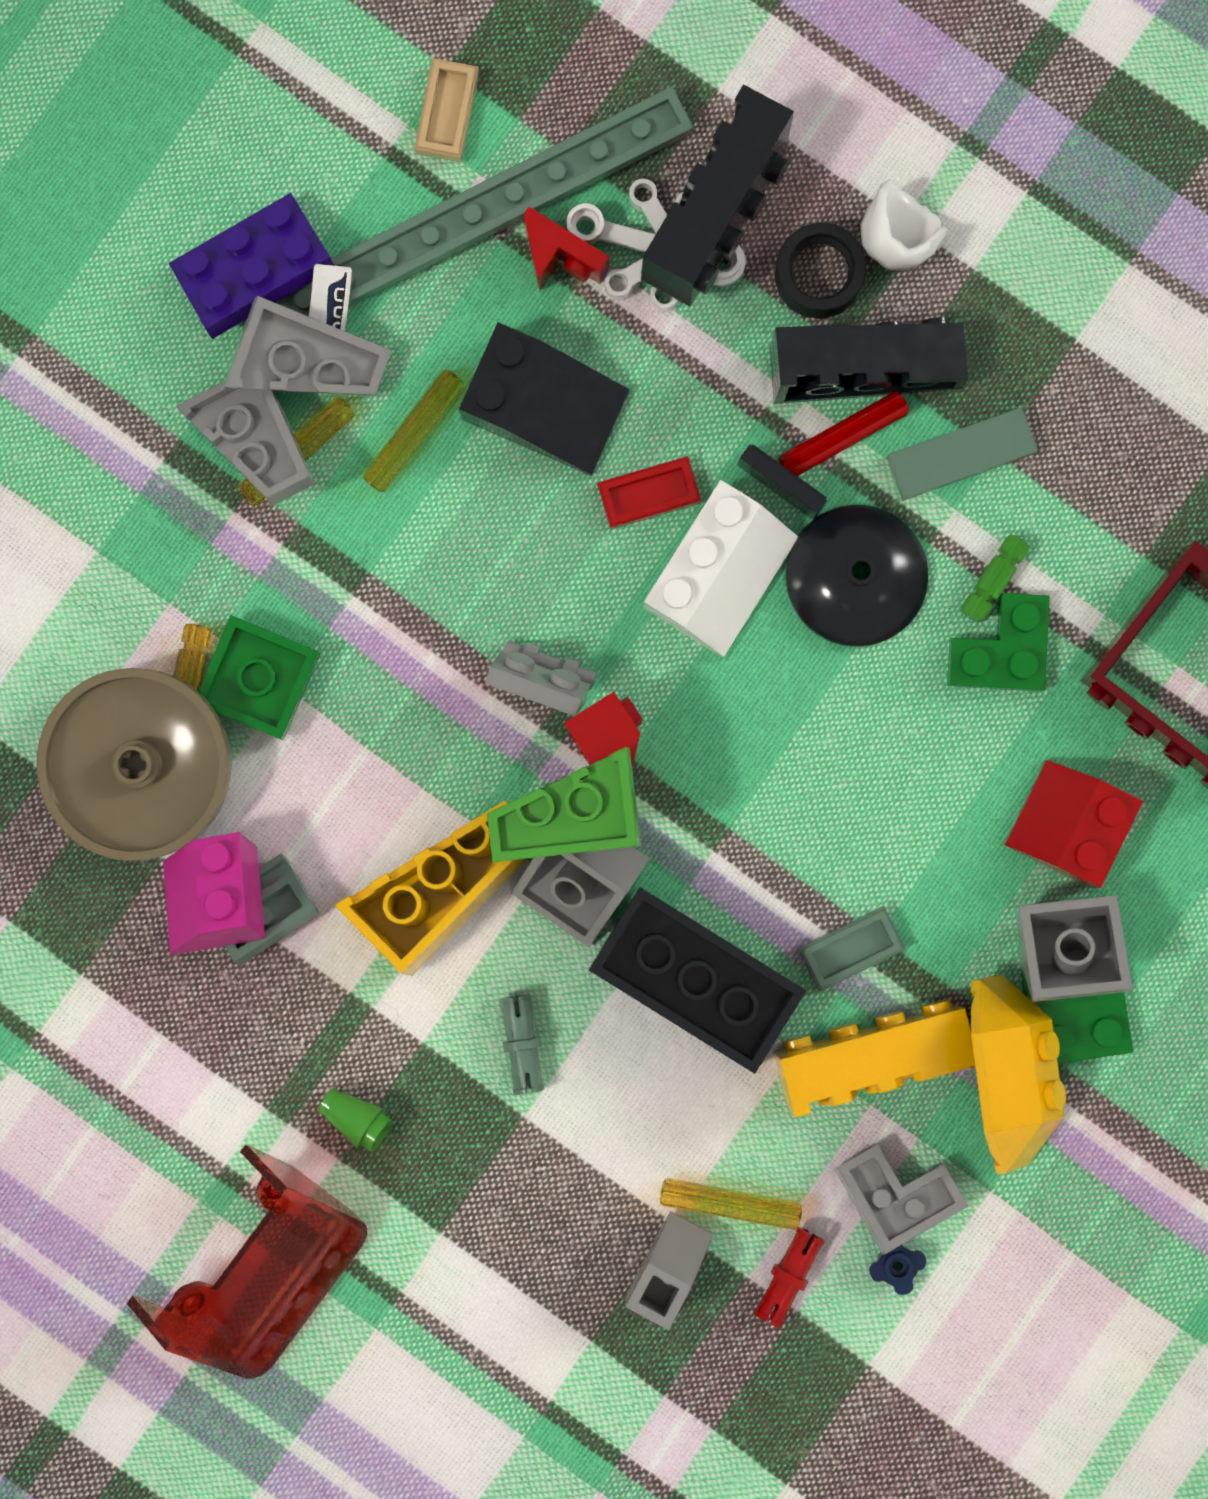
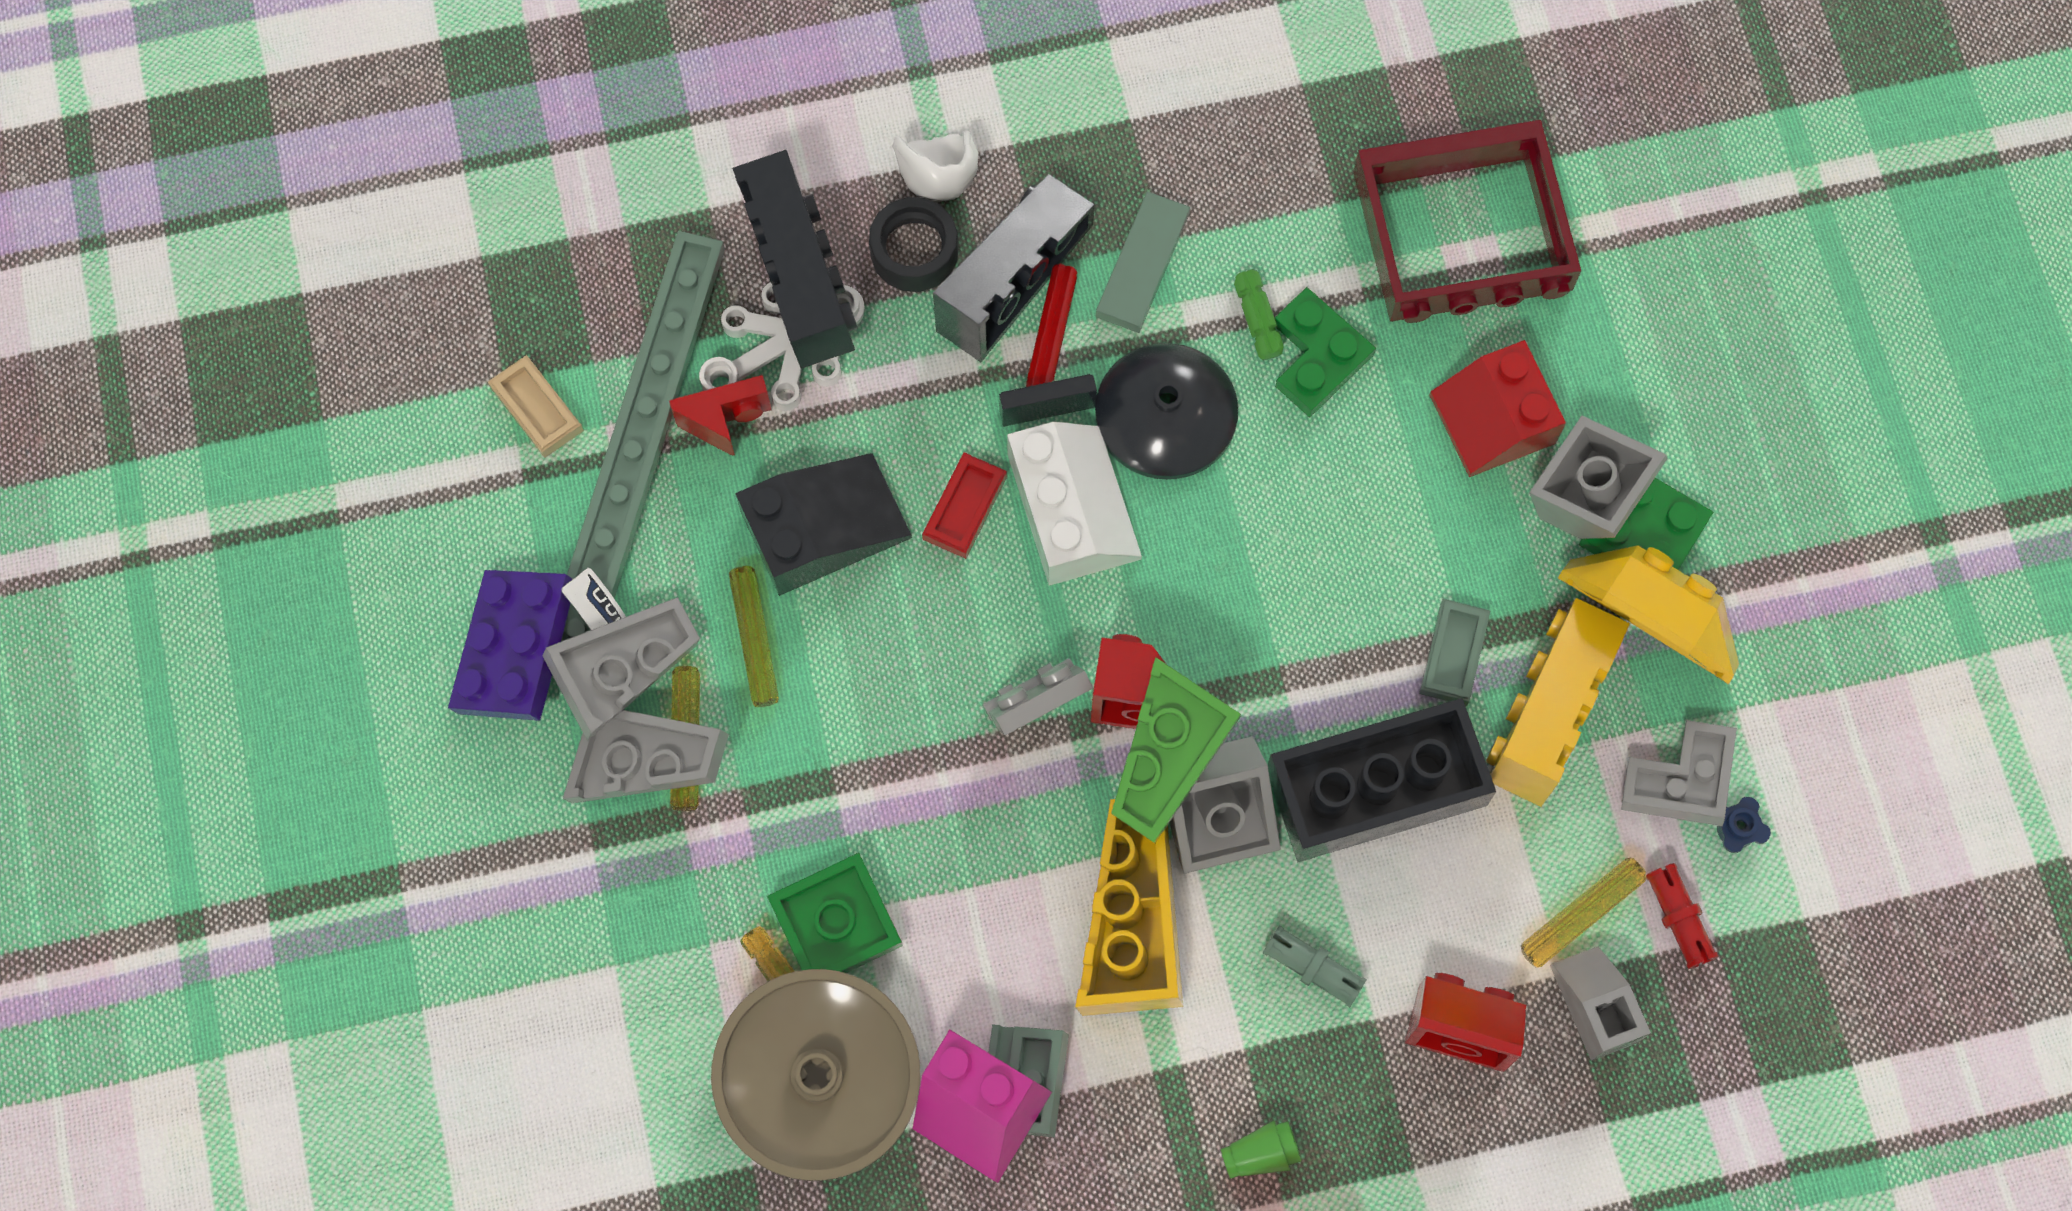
camera: 55 degrees left, 15 degrees down
(571, 1189) = (1467, 1023): none -> red slope

